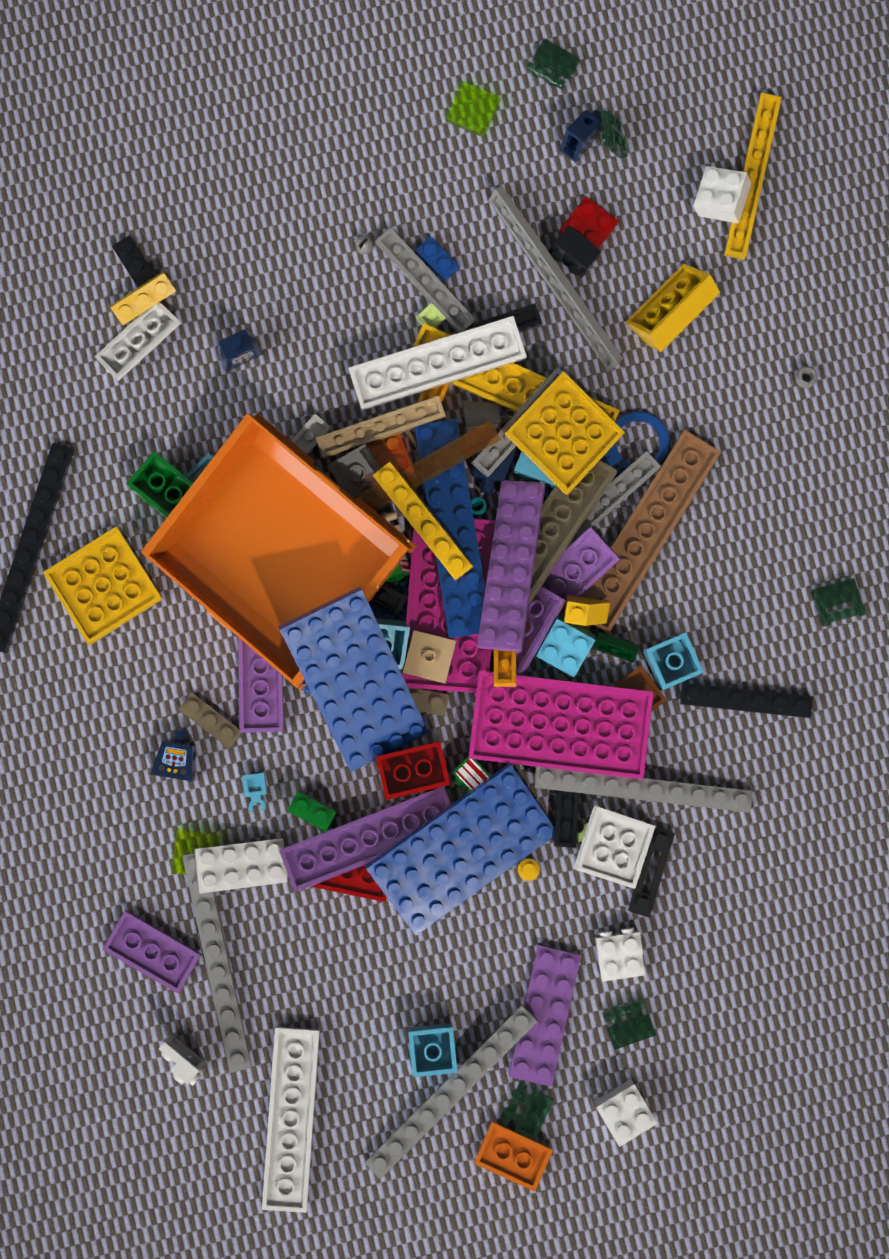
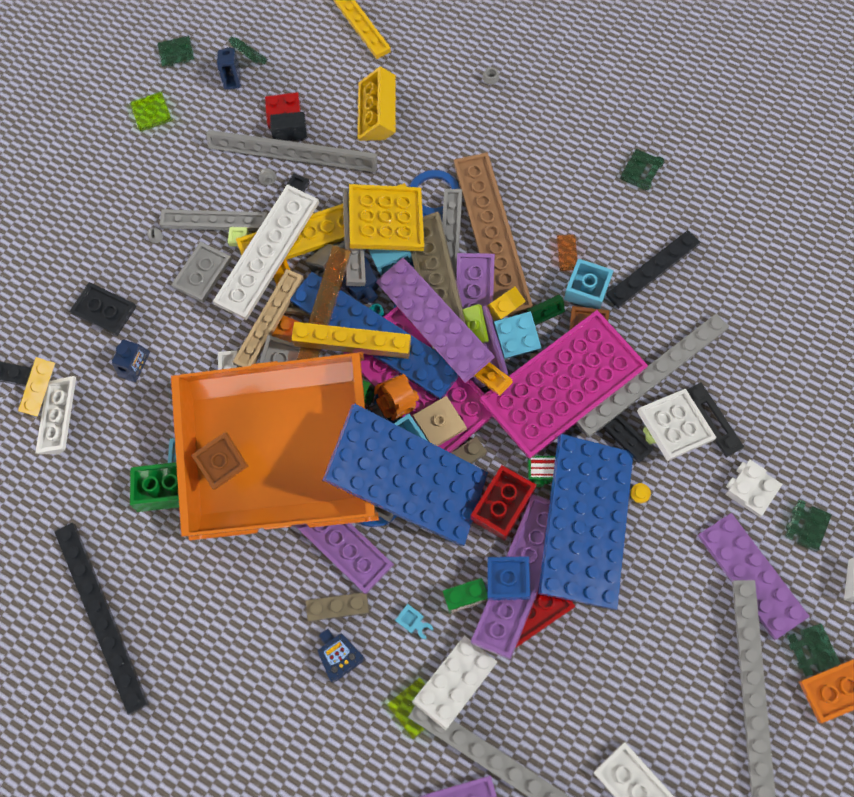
camera: 40 degrees left, 15 degrees down
(103, 585) = (176, 590): yellow plate -> none
(220, 525) = (220, 460): none -> dark orange plate
(258, 276) = (103, 309): none -> black plate
(354, 833) = (508, 578): none -> blue plate
(370, 322) = (201, 272): none -> light grey plate
(412, 604) = (396, 397): none -> orange brick
(432, 1050) = (711, 672): medium azure brick -> none
(437, 259) = (209, 202): blue plate -> none
(510, 283) = (267, 176): none -> light grey plate
(540, 605) = (475, 322): none -> lime plate
(691, 612) = (566, 252): none -> clear orange plate
(722, 194) = (342, 27): white brick -> none

